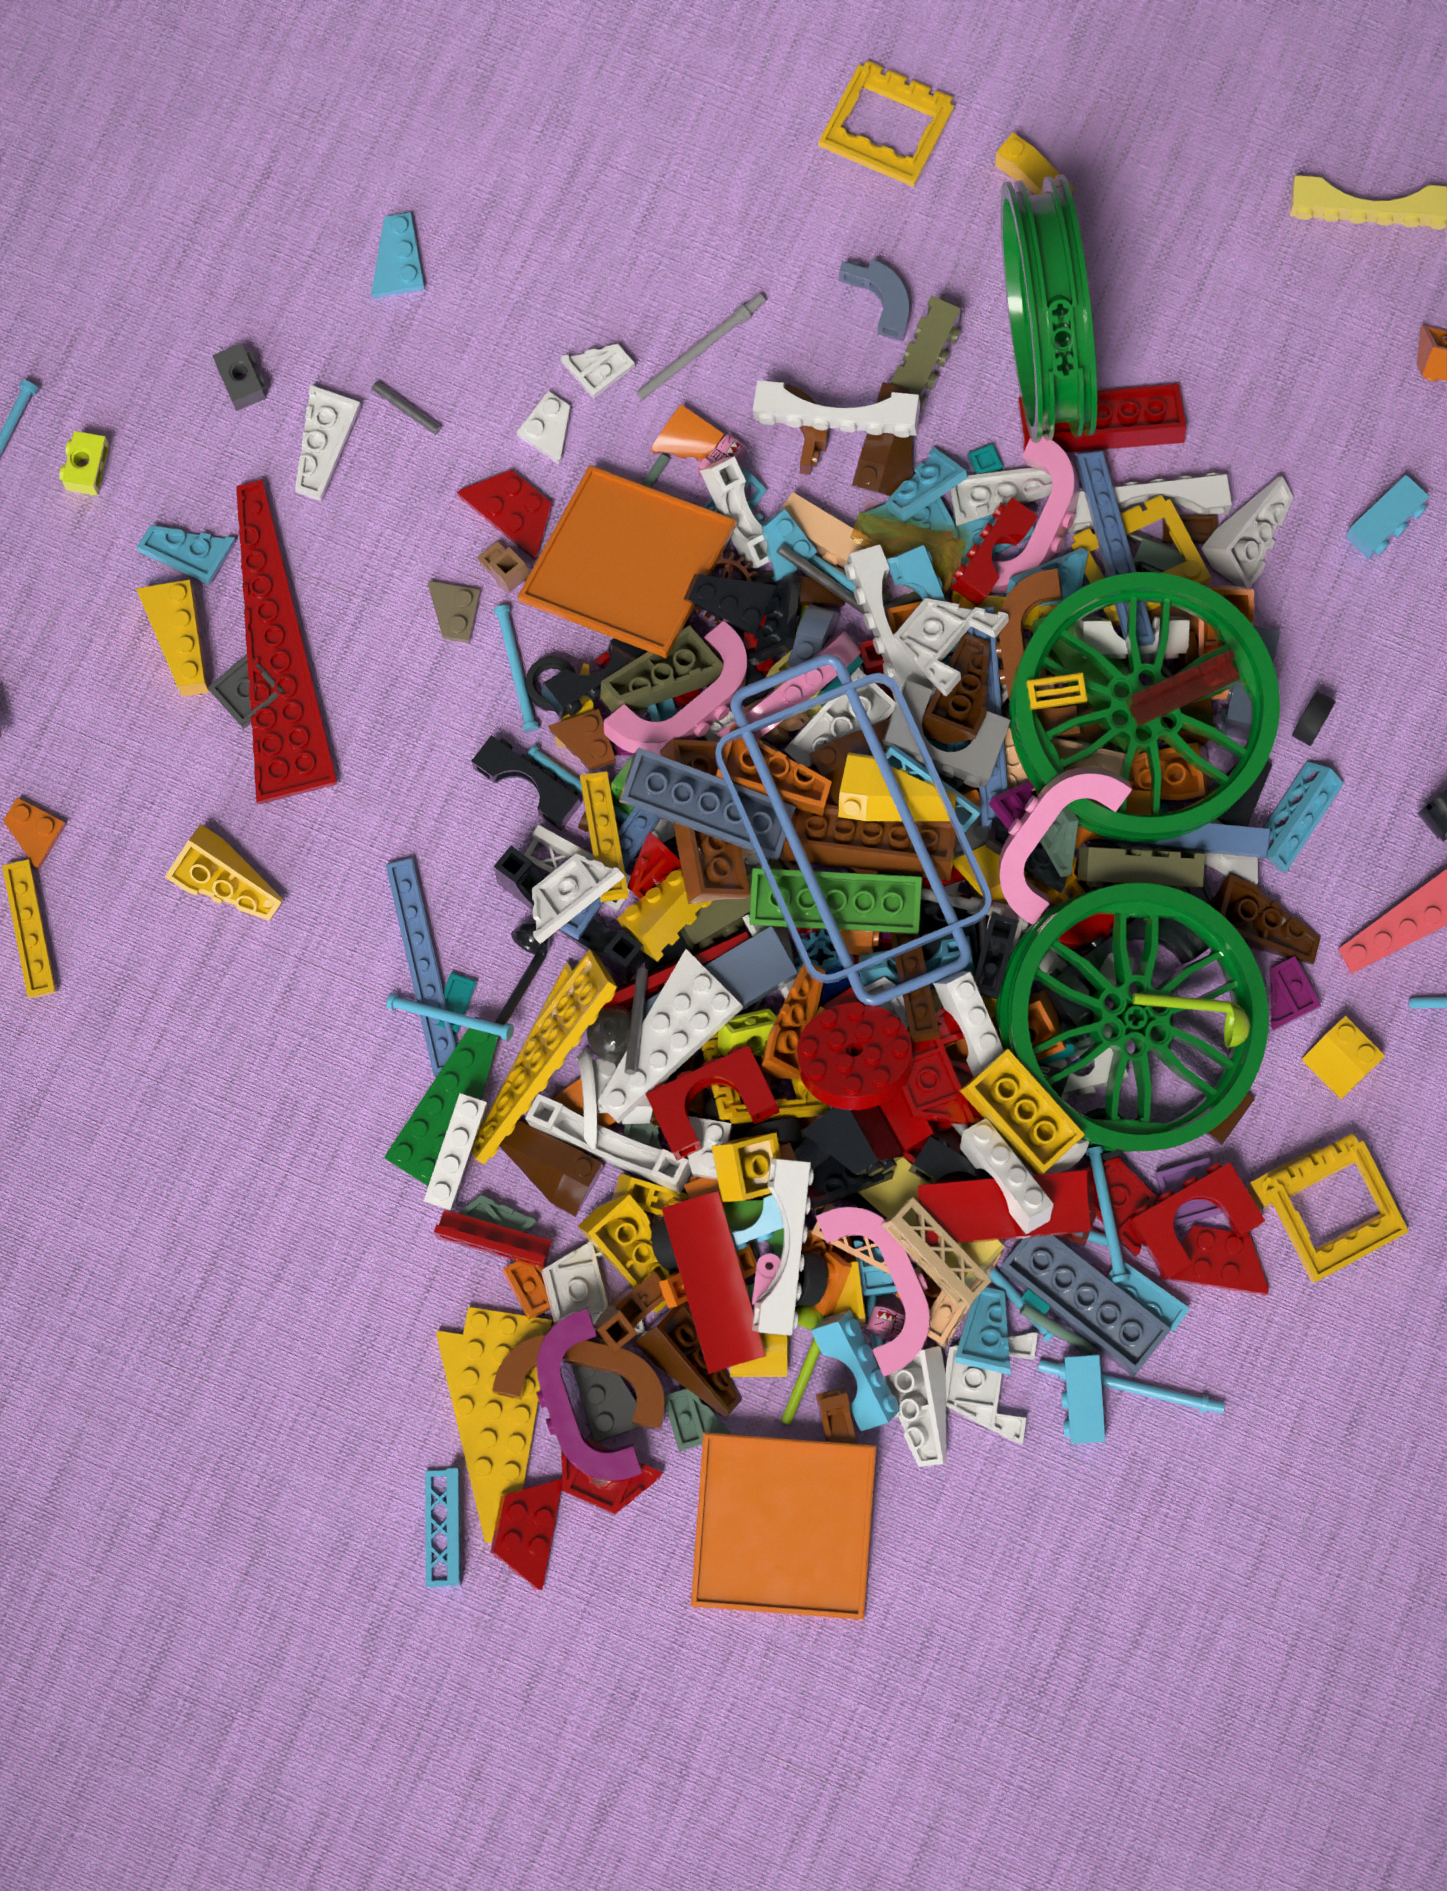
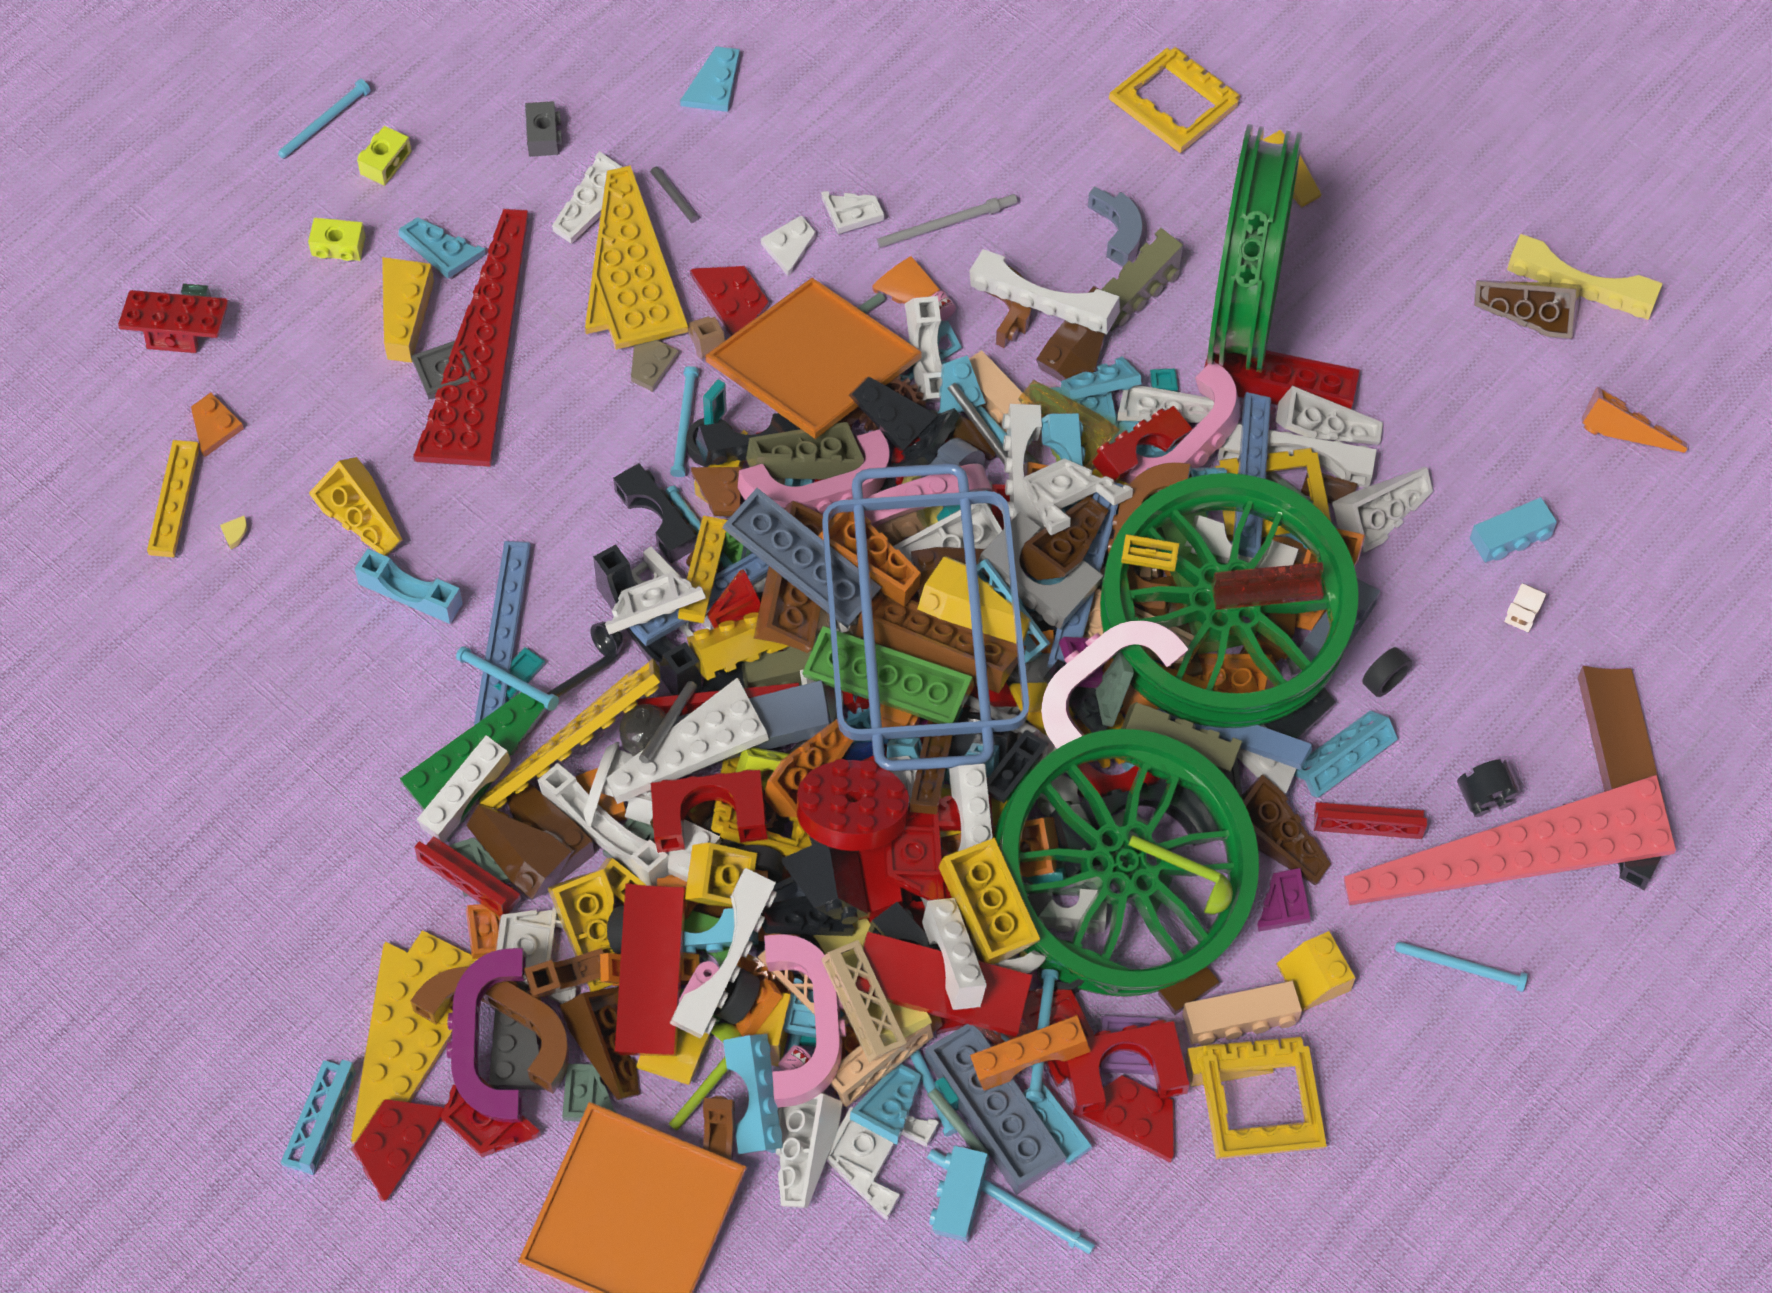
camera: 15 degrees right, 15 degrees down
(62, 572) = (336, 239): none -> neon yellow brick
(106, 943) = (234, 531): none -> light yellow tile
(326, 952) = (384, 577): none -> medium azure arch
(400, 525) = (629, 276): none -> yellow wing
(536, 1196) = (524, 853): none -> reddish brown wedge
(547, 649) = (715, 403): none -> teal tile
(1106, 1242) = (1055, 1042): none -> orange arch
(1161, 457) = (1324, 419): none -> white wedge
(1286, 1124) = (1242, 1013): none -> light nougat brick
(1335, 250) = (1535, 305): none -> reddish brown wedge
(1343, 879) = (1369, 820): none -> red fence
(1426, 599) = (1525, 607): none -> brick

